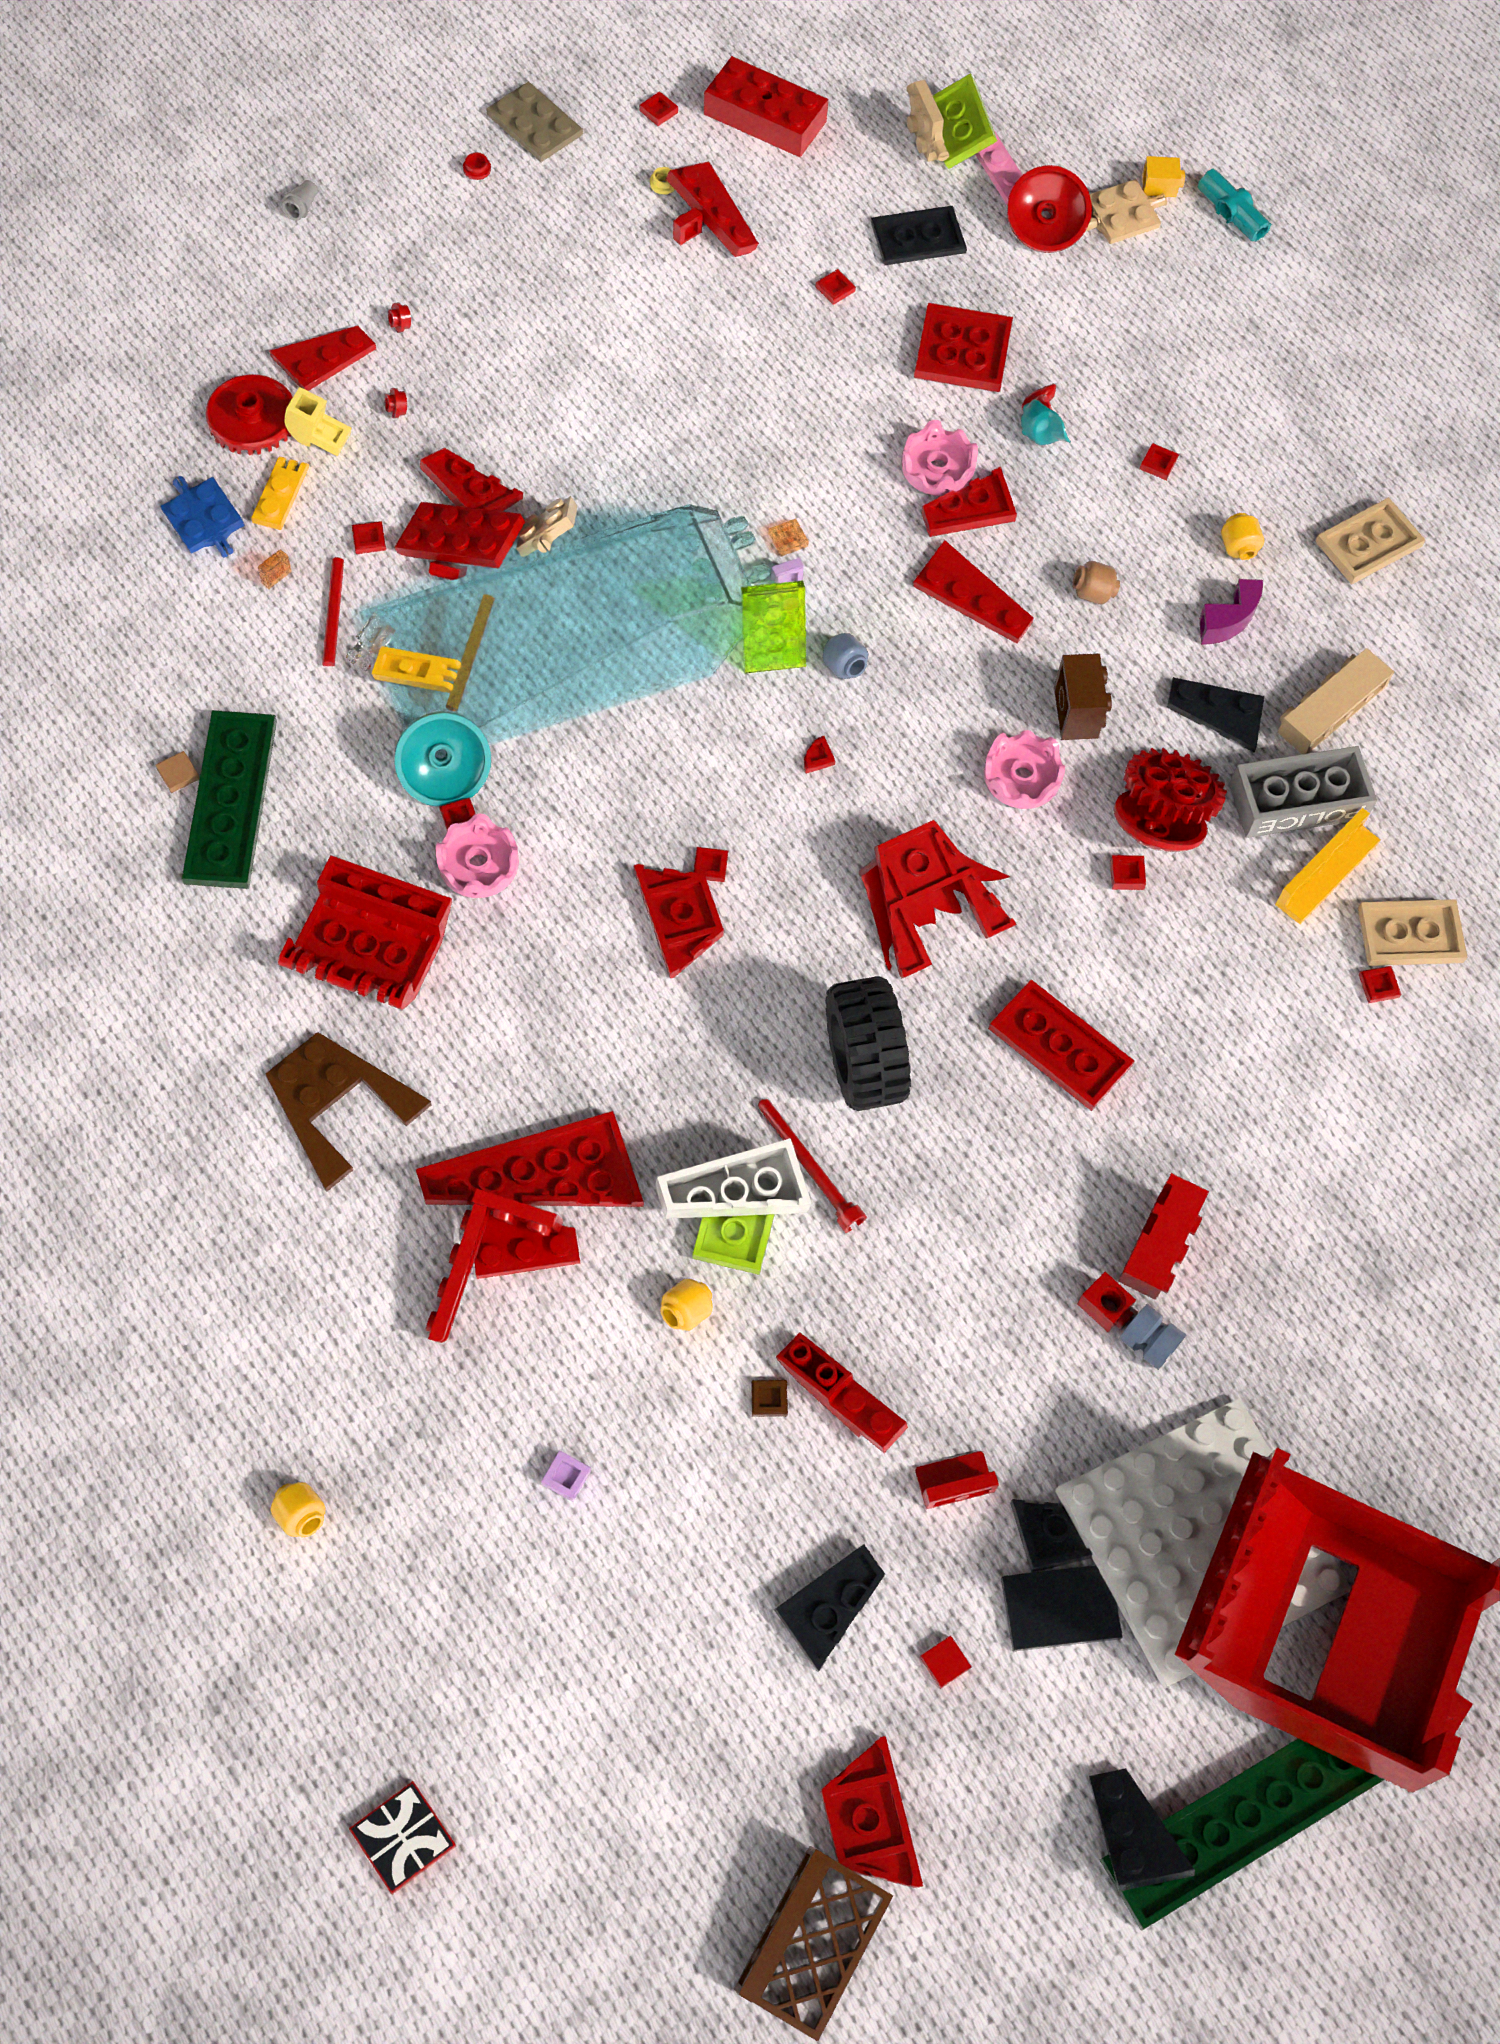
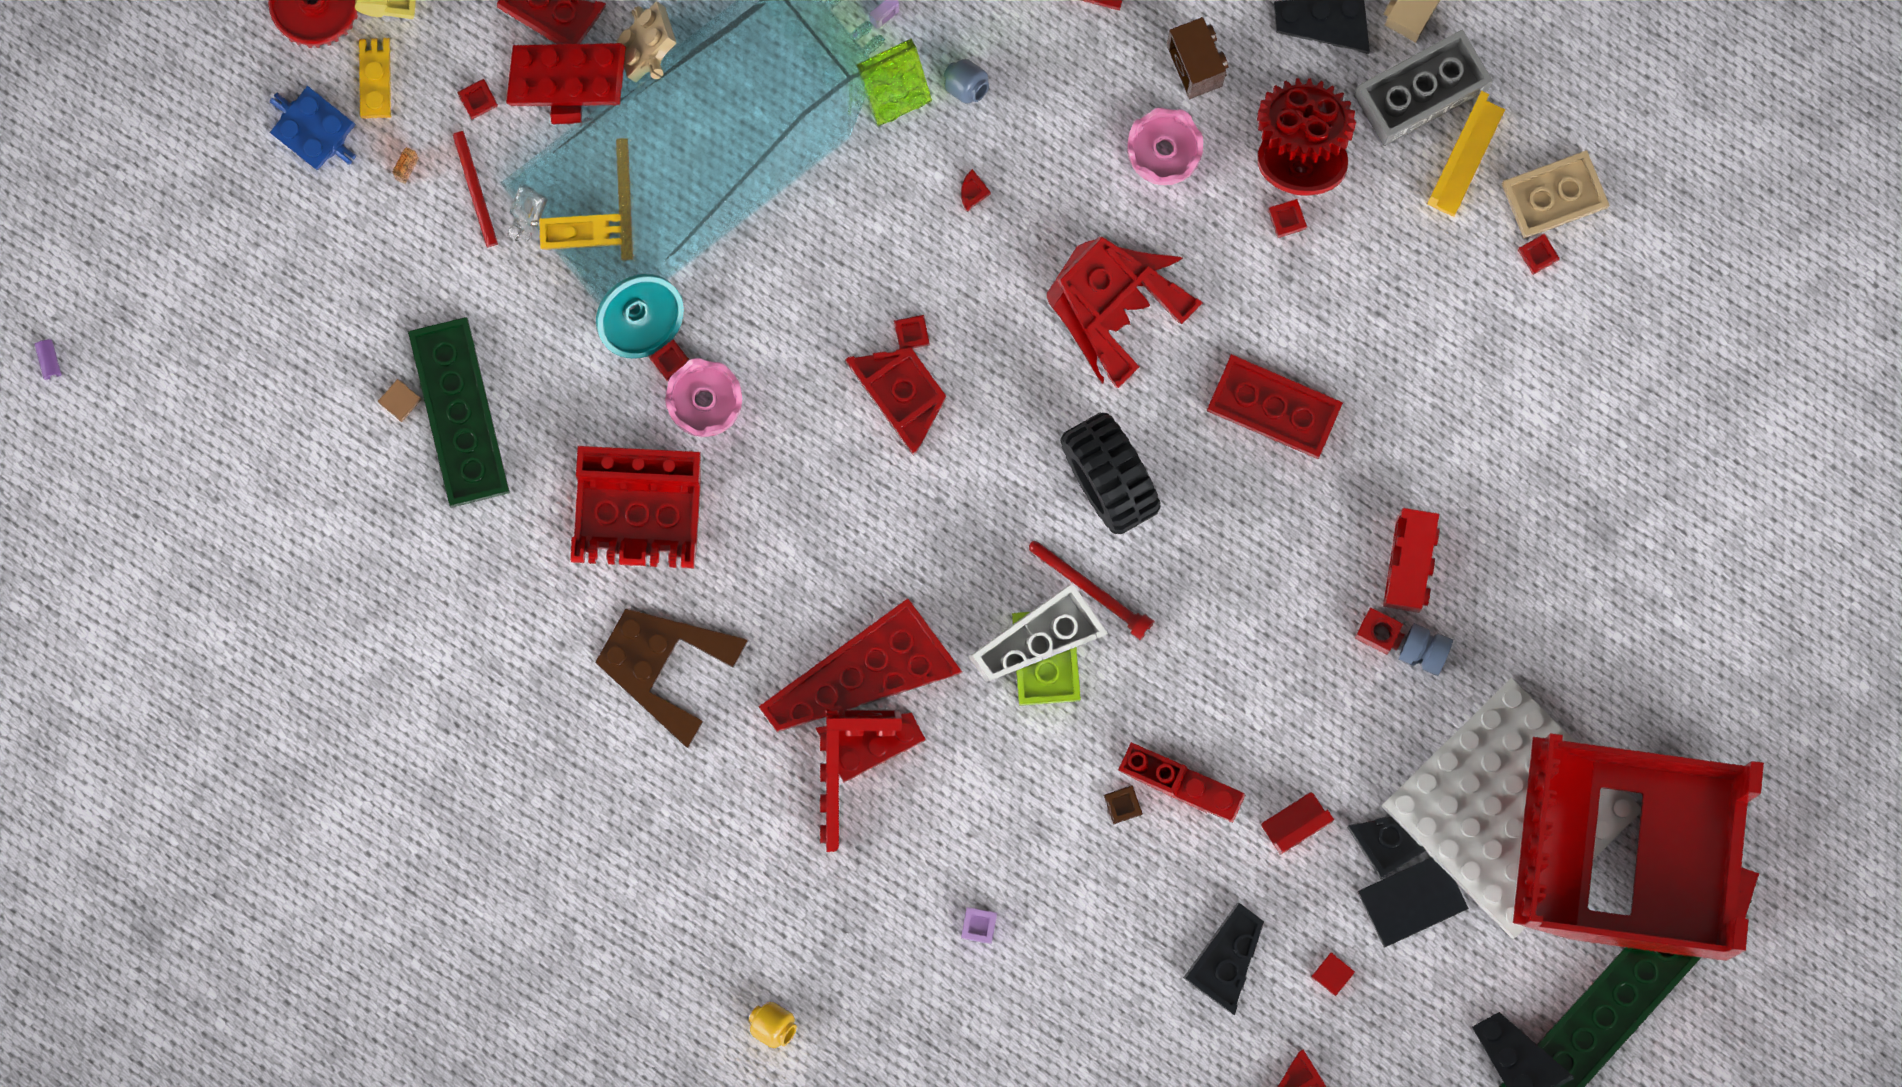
camera: 15 degrees left, 15 degrees up
(686, 1304) = (1028, 749): yellow head -> none

